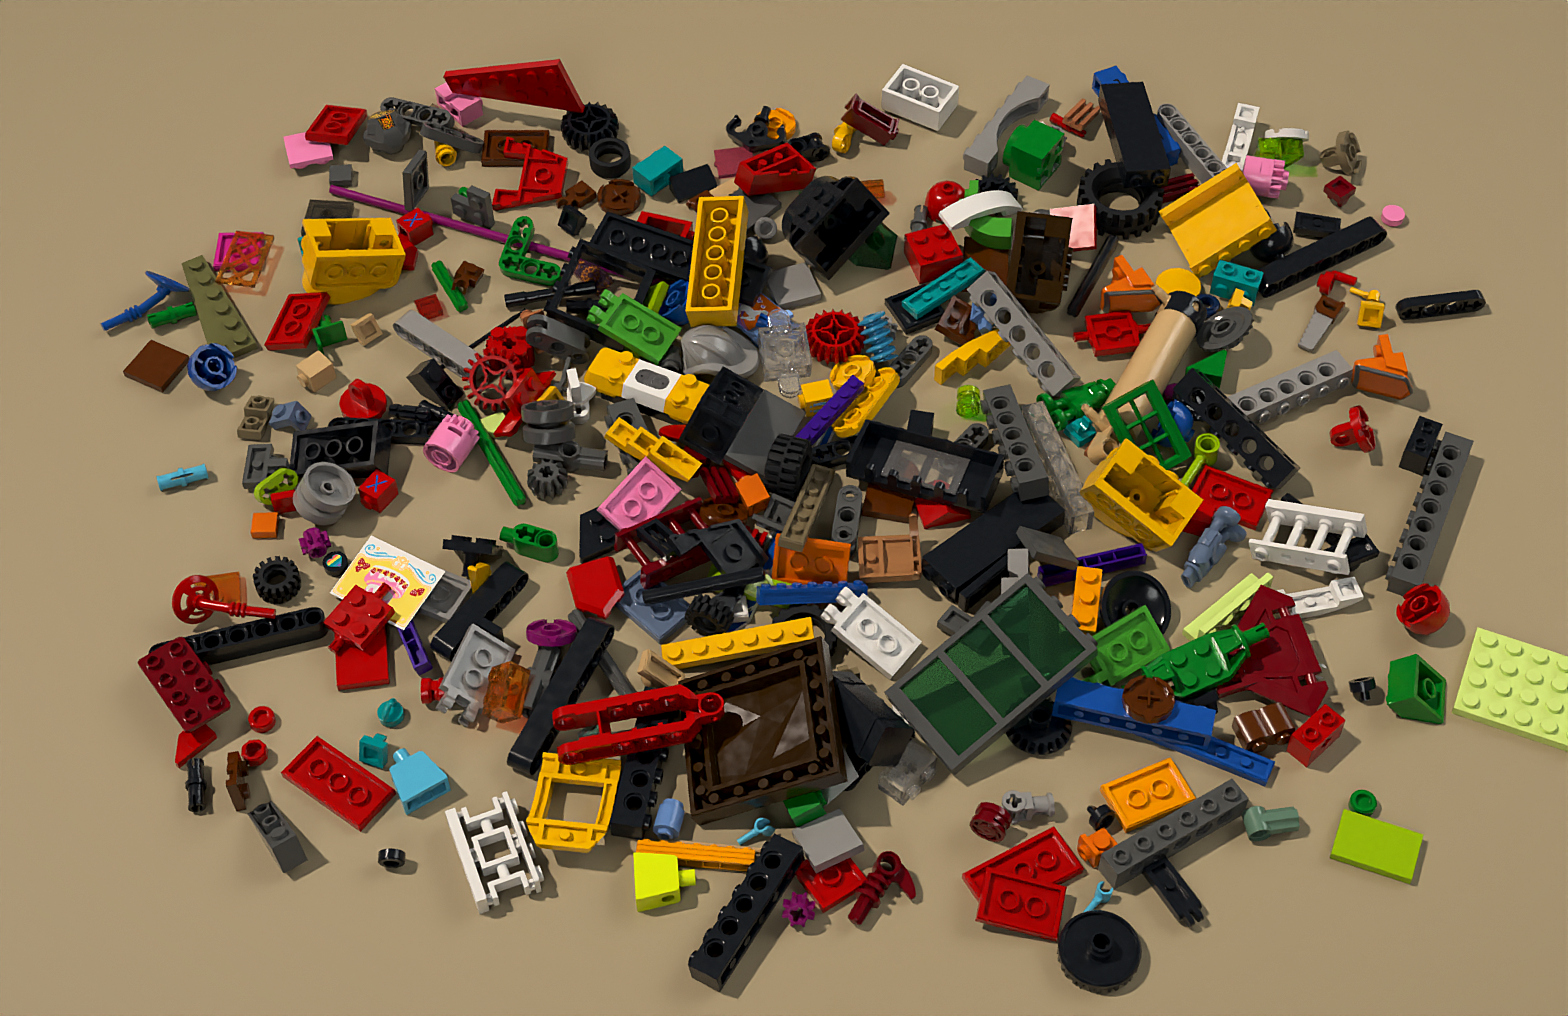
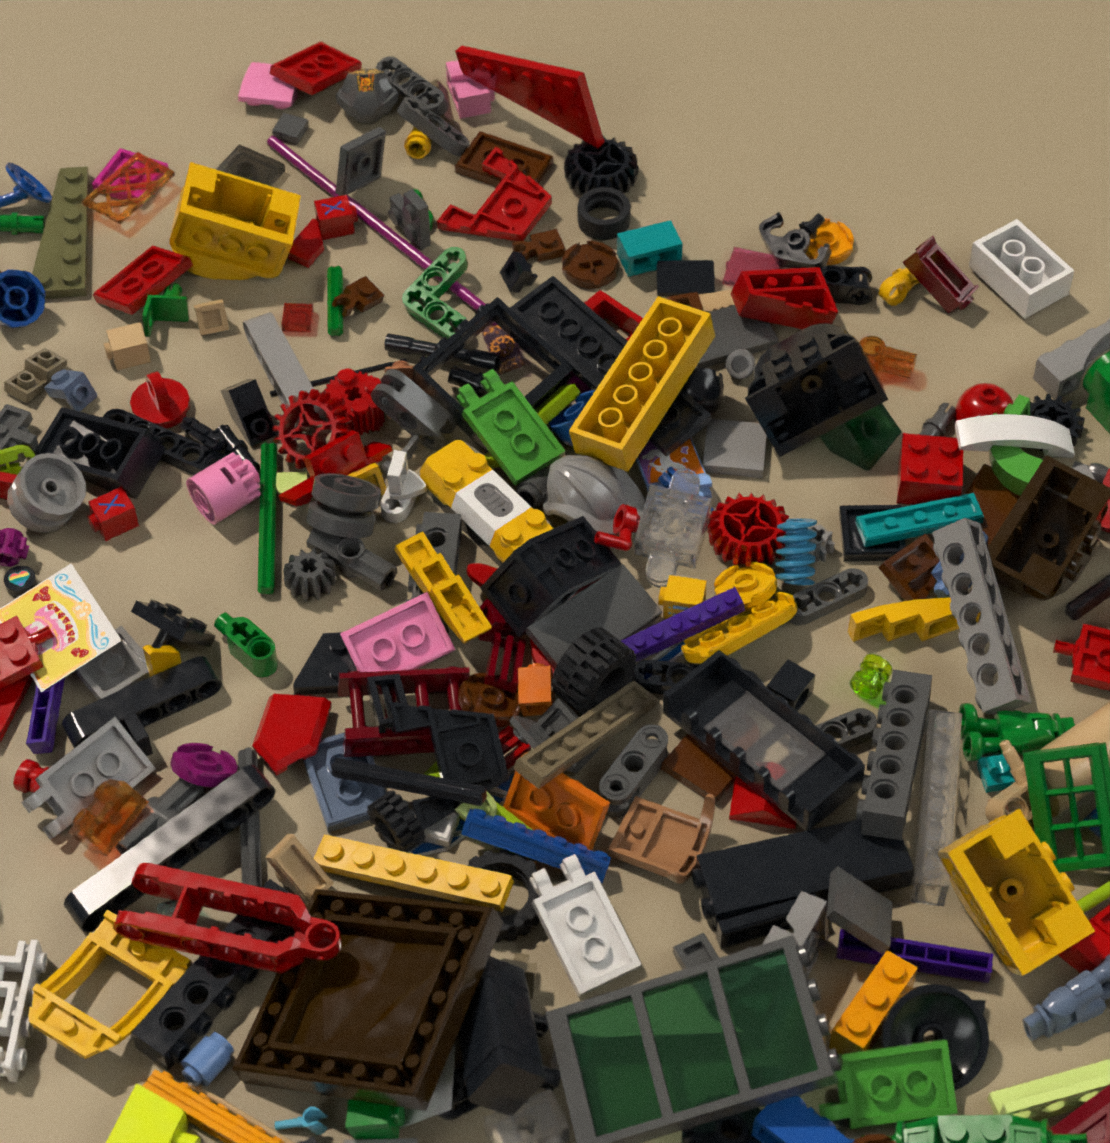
camera: 25 degrees right, 0 degrees up
(751, 362) = (624, 524): none -> red plate

